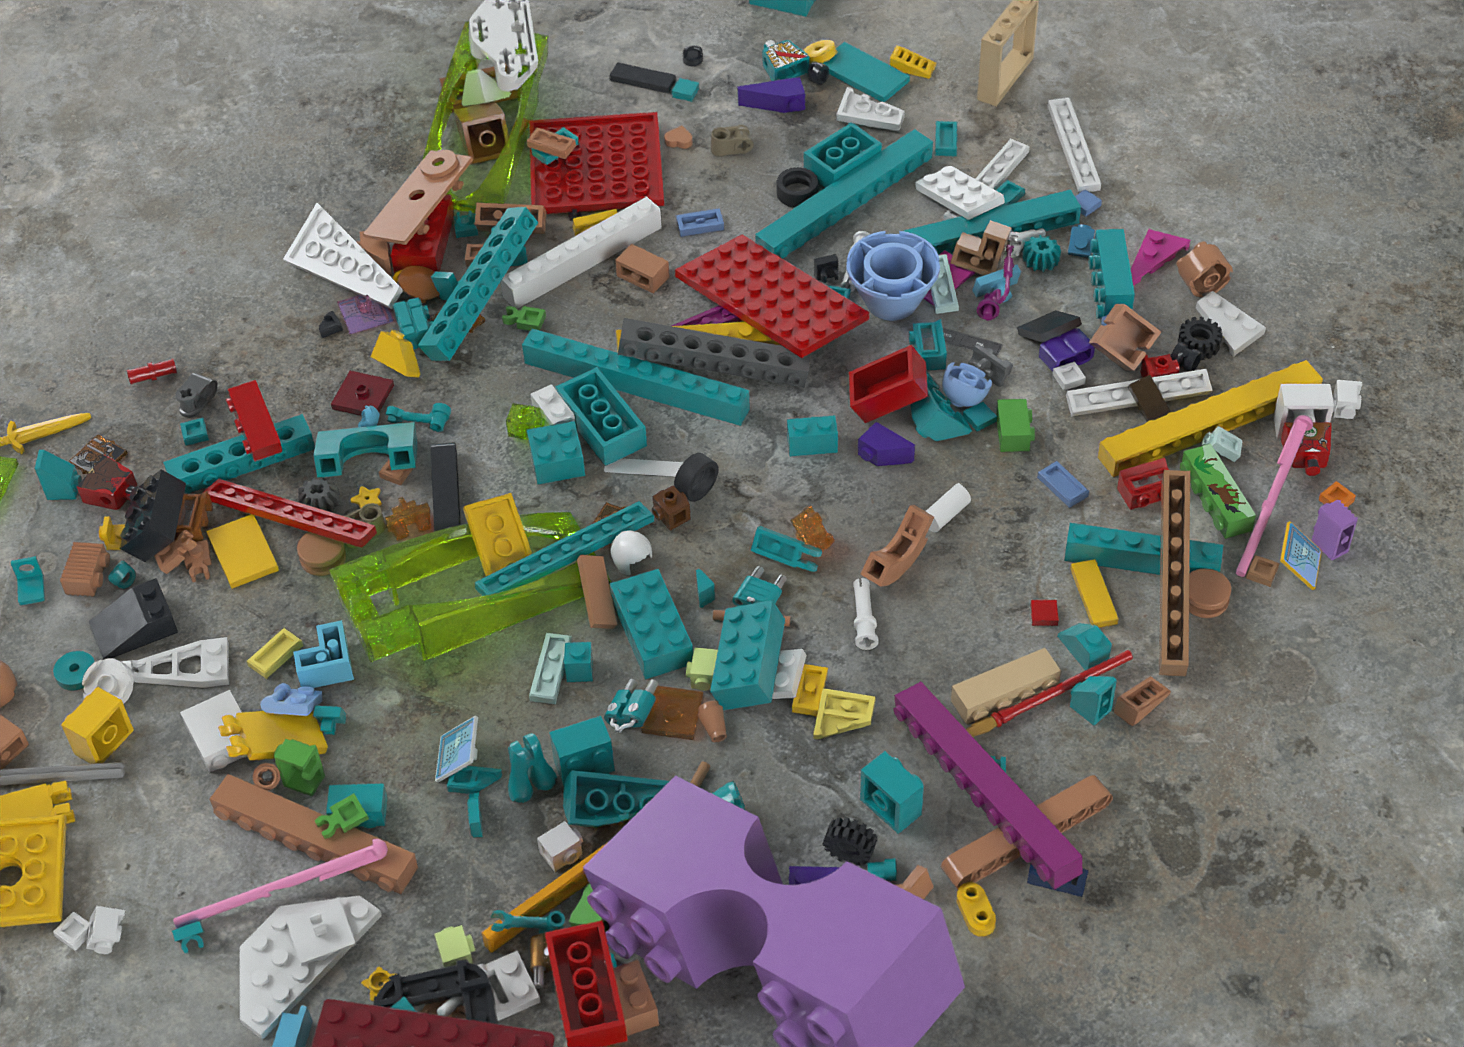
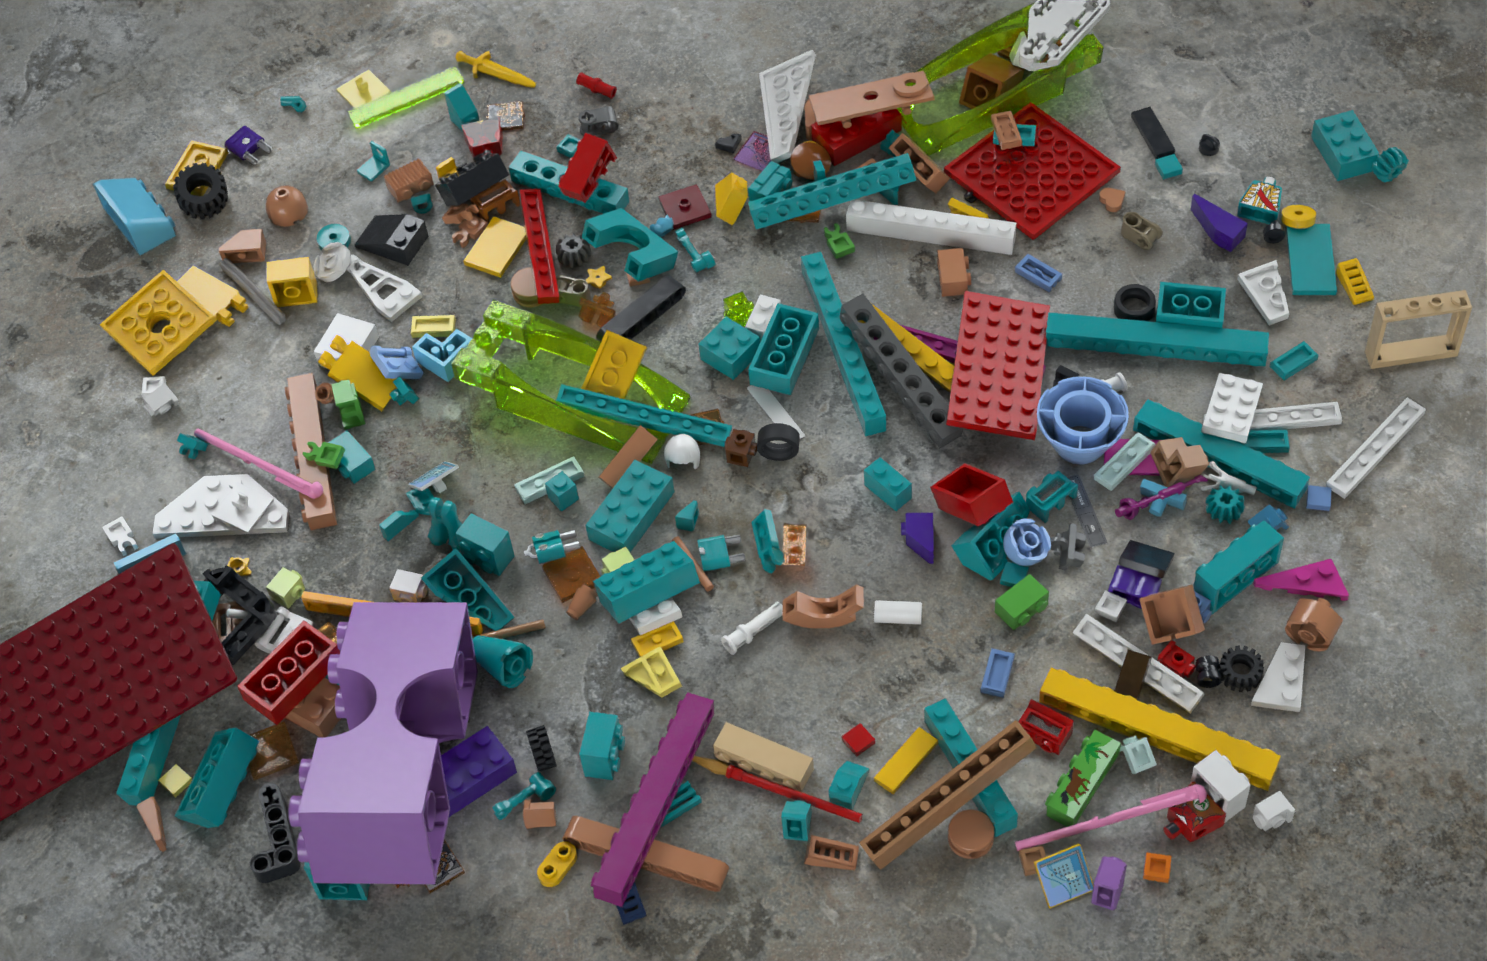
camera: 55 degrees right, 5 degrees up
(544, 924) = (326, 606): teal brick -> none

